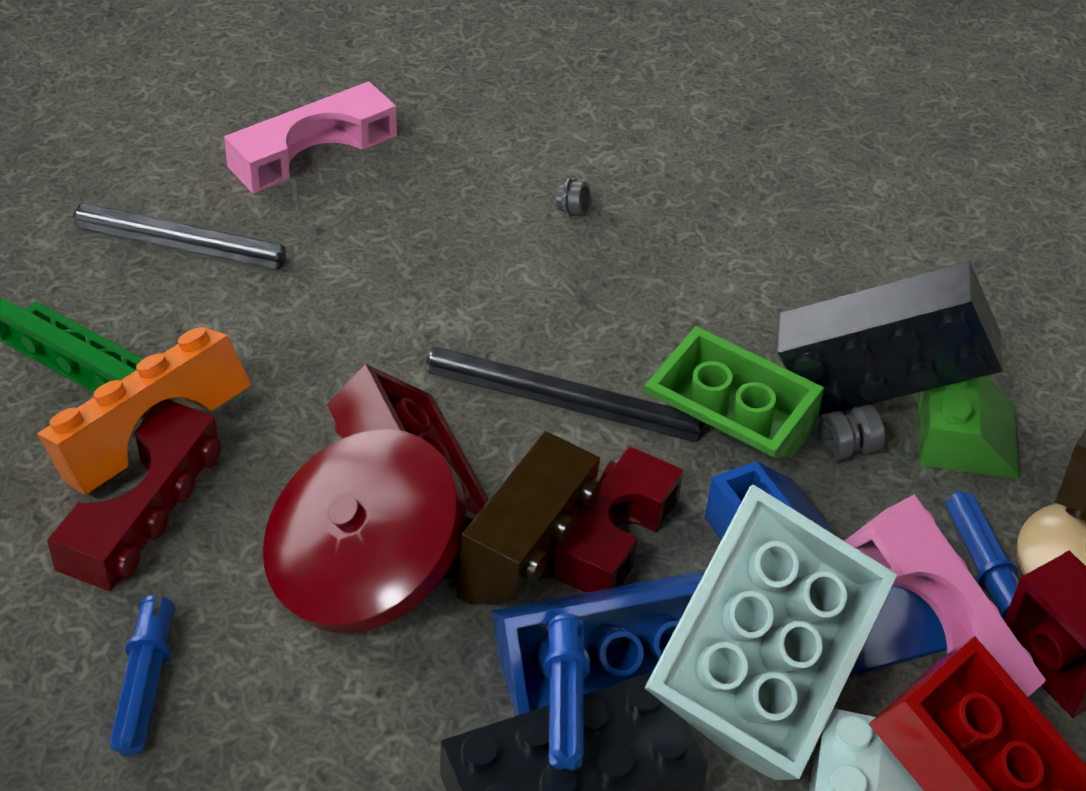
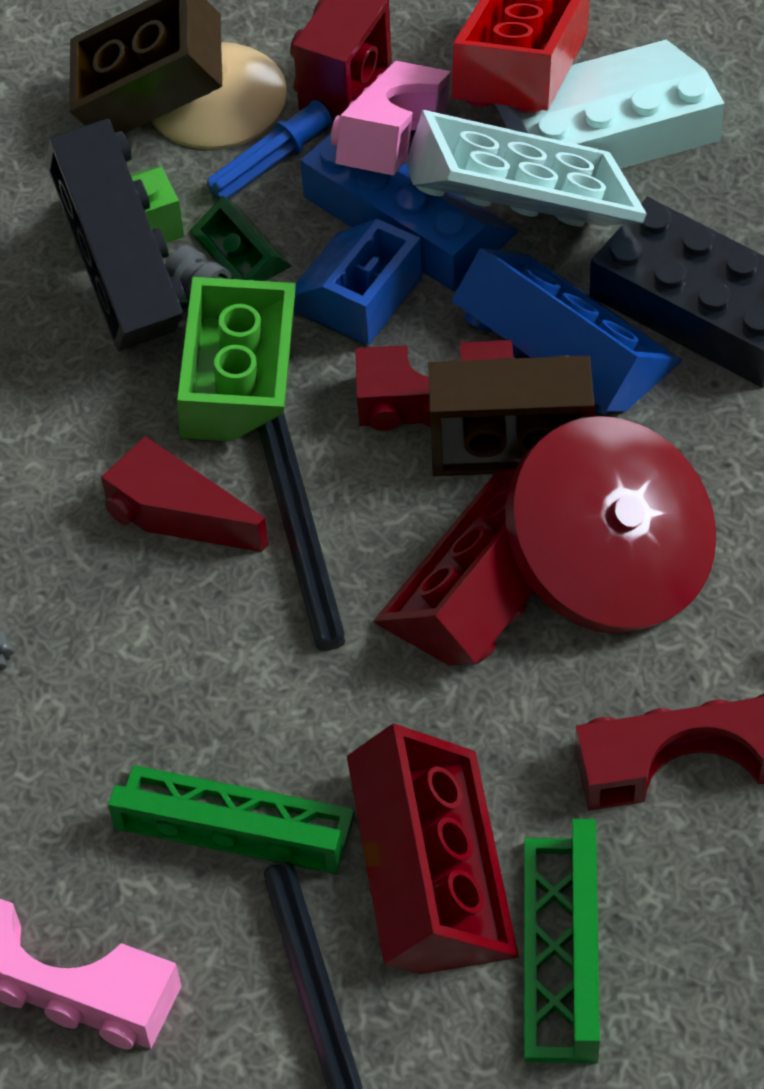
camera: 115 degrees left, 10 degrees up
(93, 440) = (611, 792): orange arch -> none
(167, 298) = (429, 853): none -> dark red slope
(325, 240) = (228, 827): none -> green fence
(566, 670) = (656, 291): blue axle -> none
(622, 326) = (177, 501): none -> dark red slope
(875, 490) = (238, 243): none -> dark green slope

